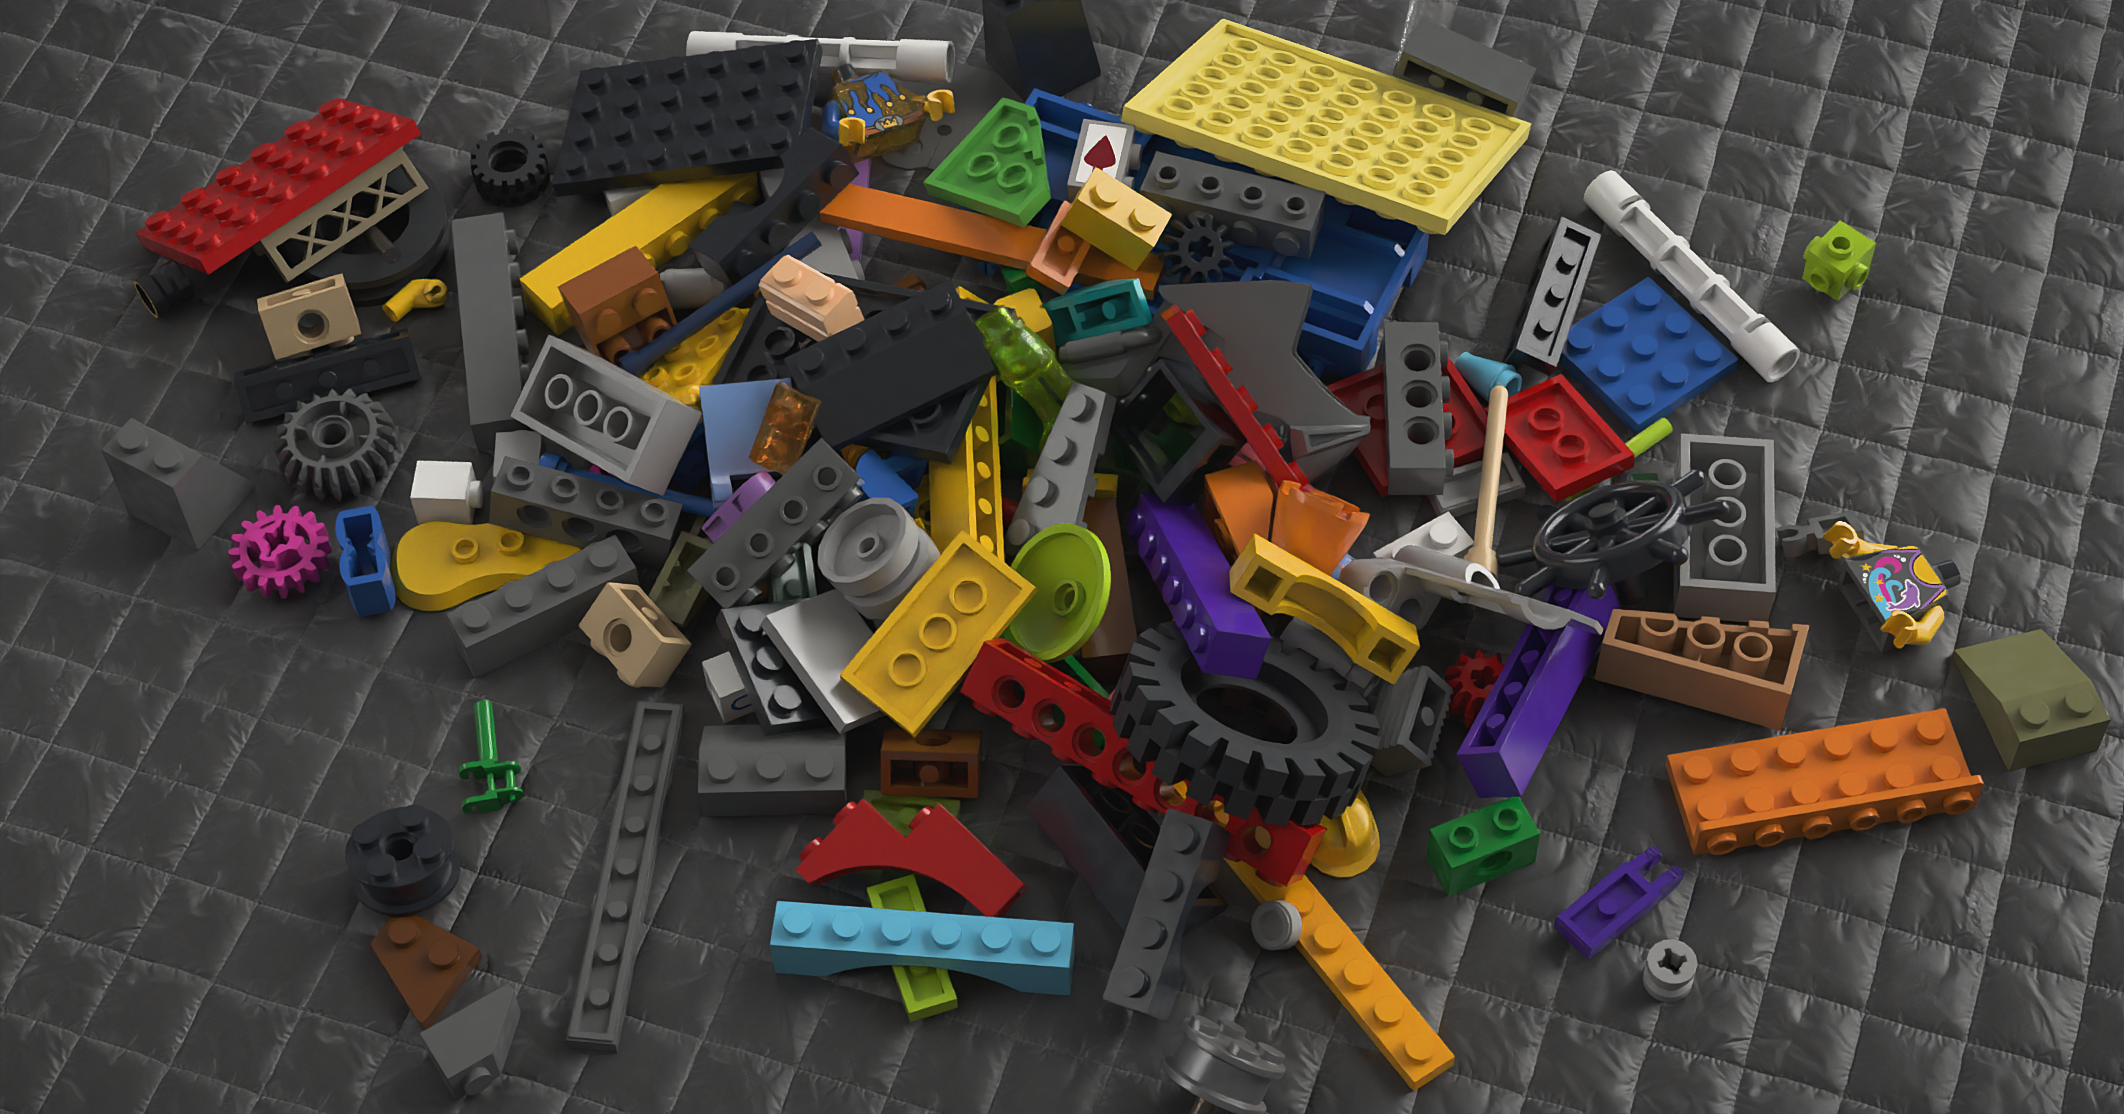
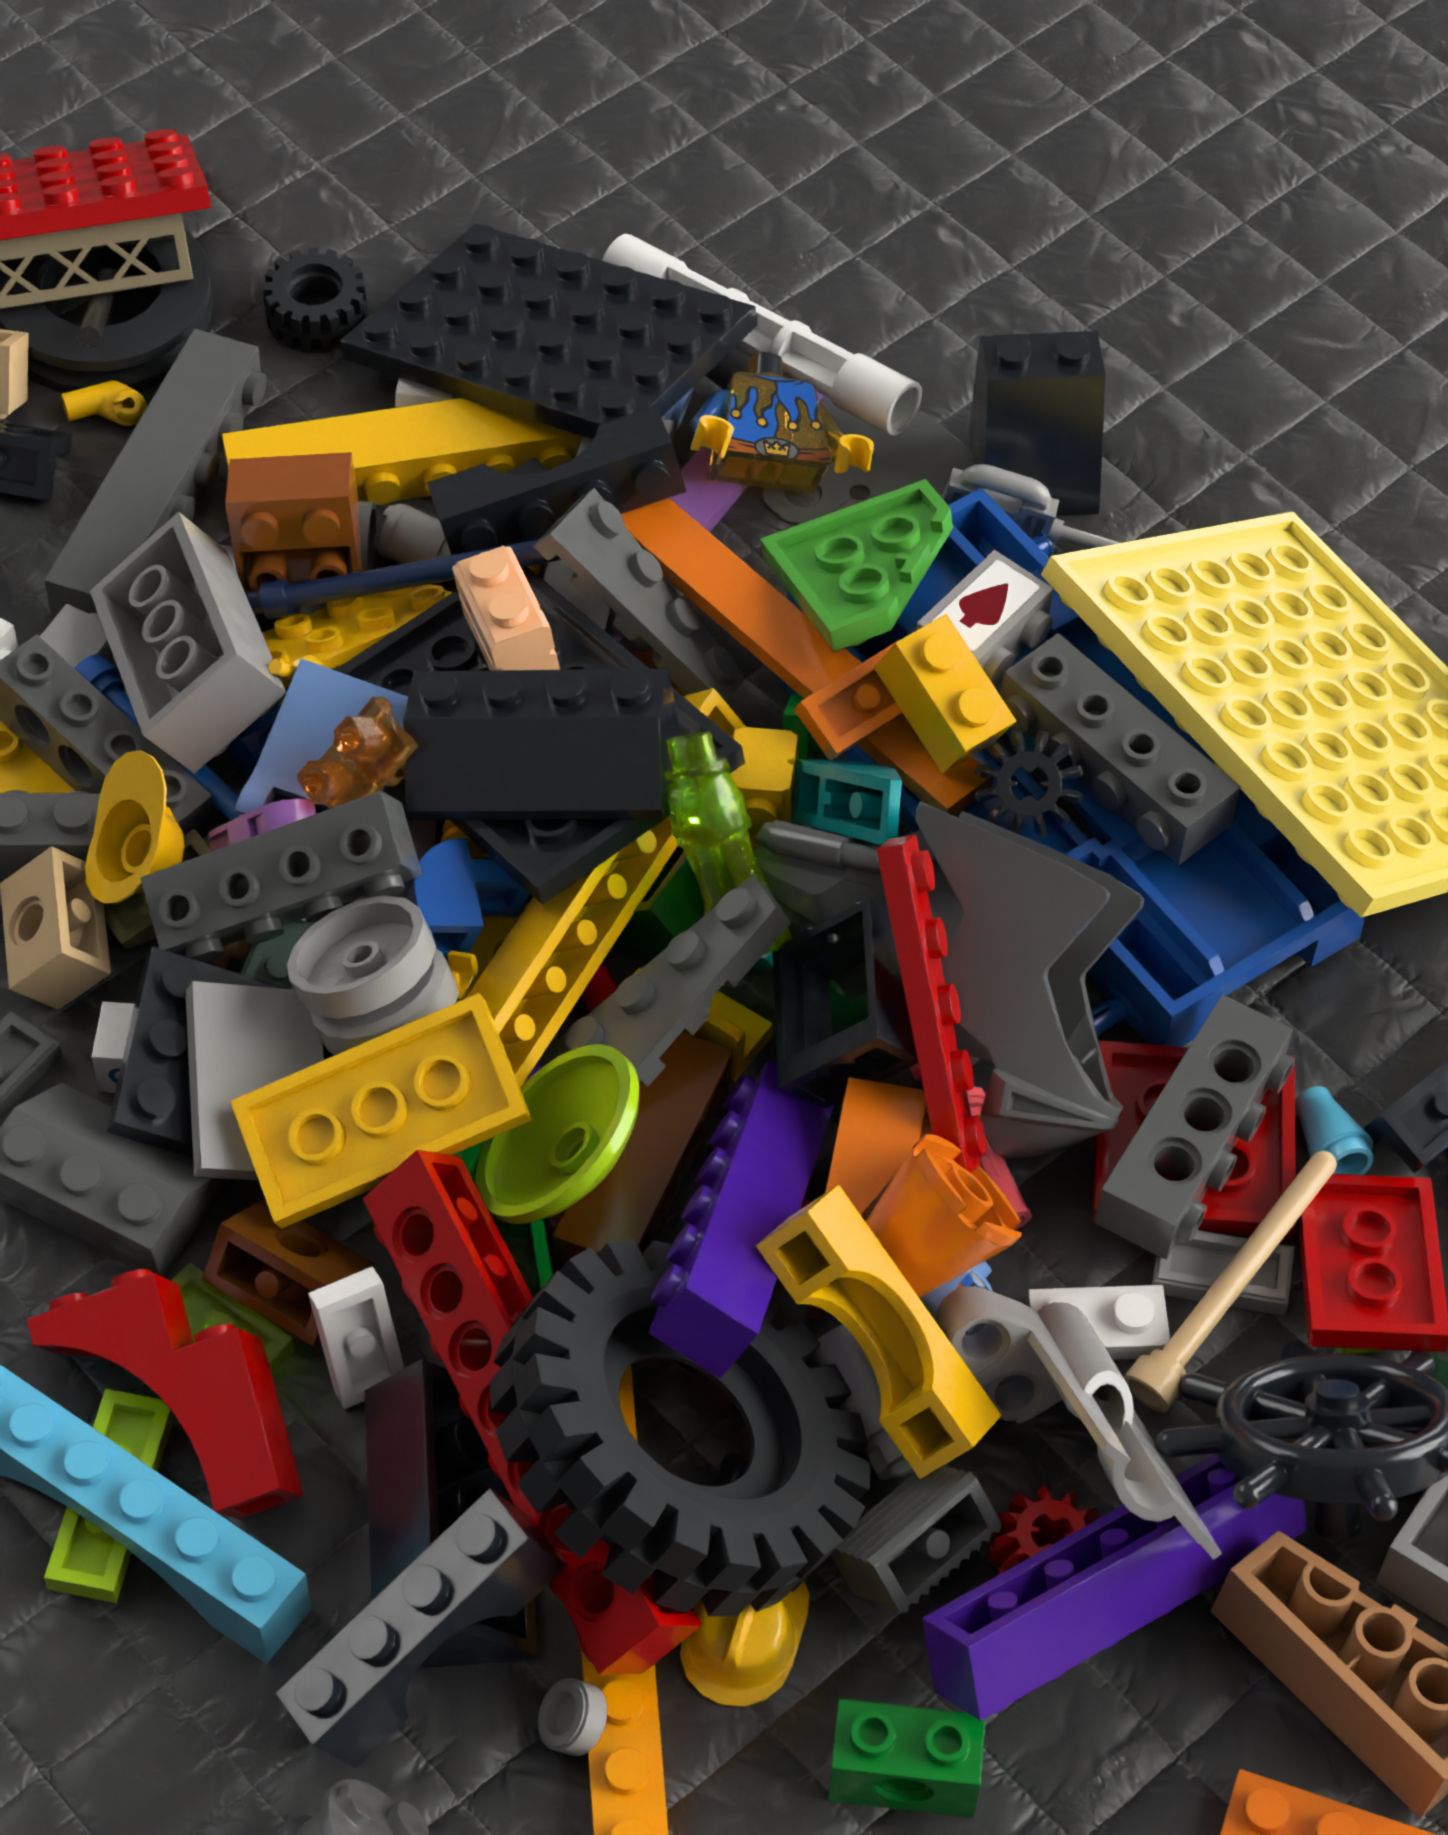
camera: 25 degrees right, 0 degrees up
(654, 546) = (131, 830): none -> yellow piece
(851, 241) = (646, 606): none -> dark grey wing
(1004, 776) = (356, 1334): none -> white plate
(1065, 84) = (1022, 500): none -> light grey piece

